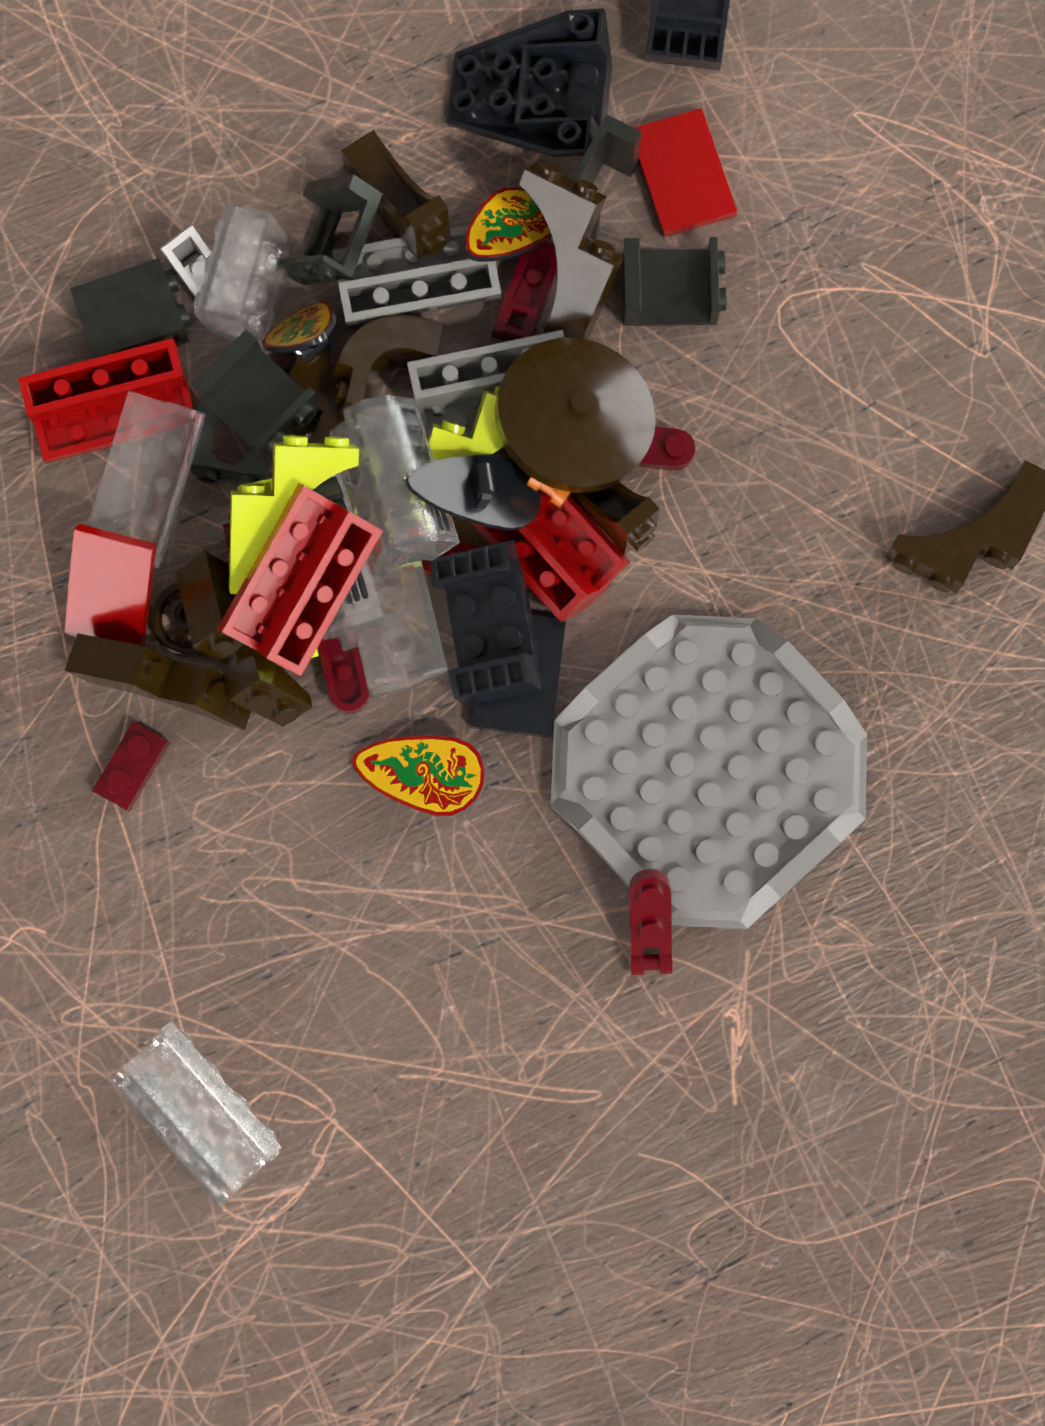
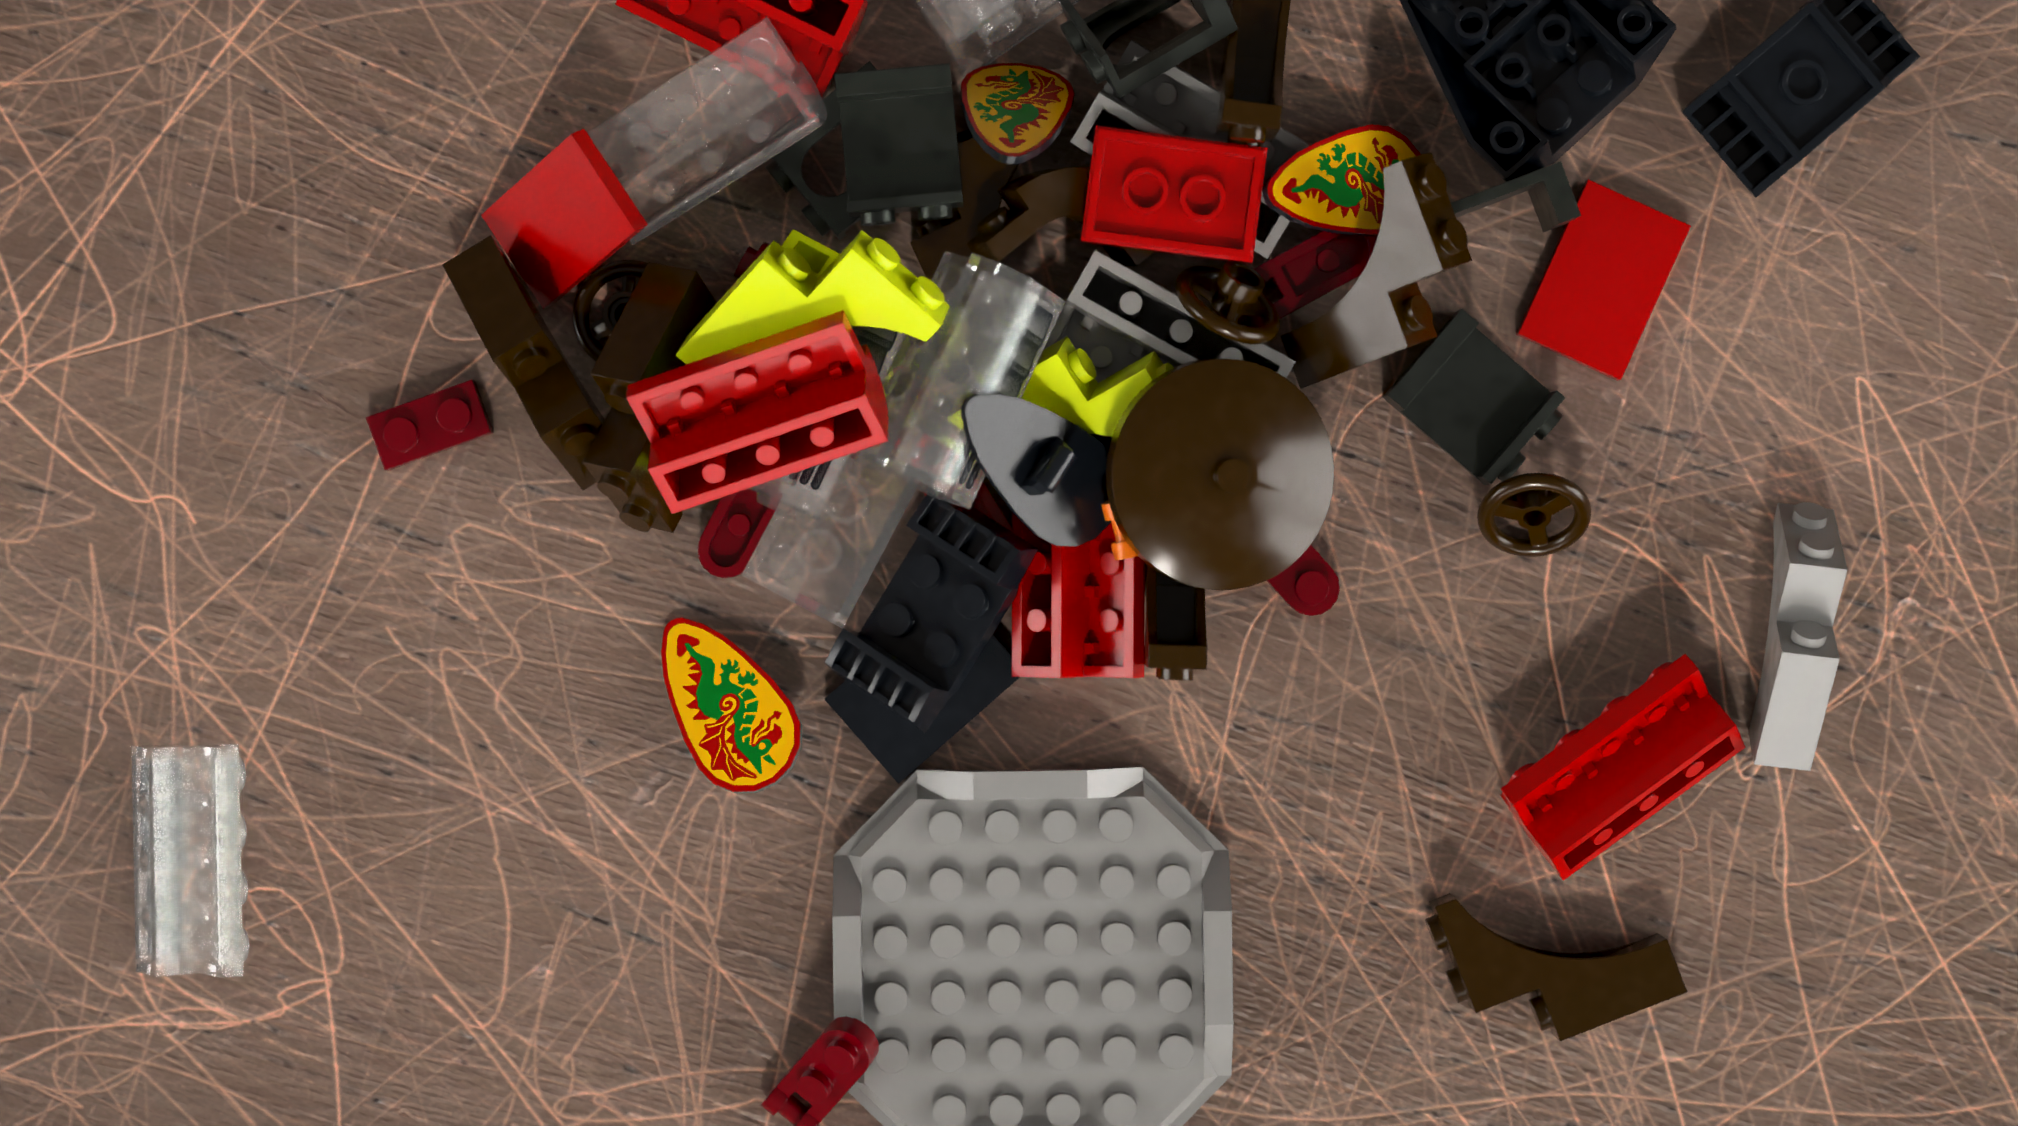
camera: 40 degrees right, 10 degrees up
(423, 298) = (1174, 194): none -> red tile
(500, 328) = (1232, 293): none -> dark brown piece
(749, 305) = (1532, 502): none -> dark brown piece
(919, 397) = (1622, 766): none -> red brick
(951, 254) = (1800, 637): none -> light grey arch

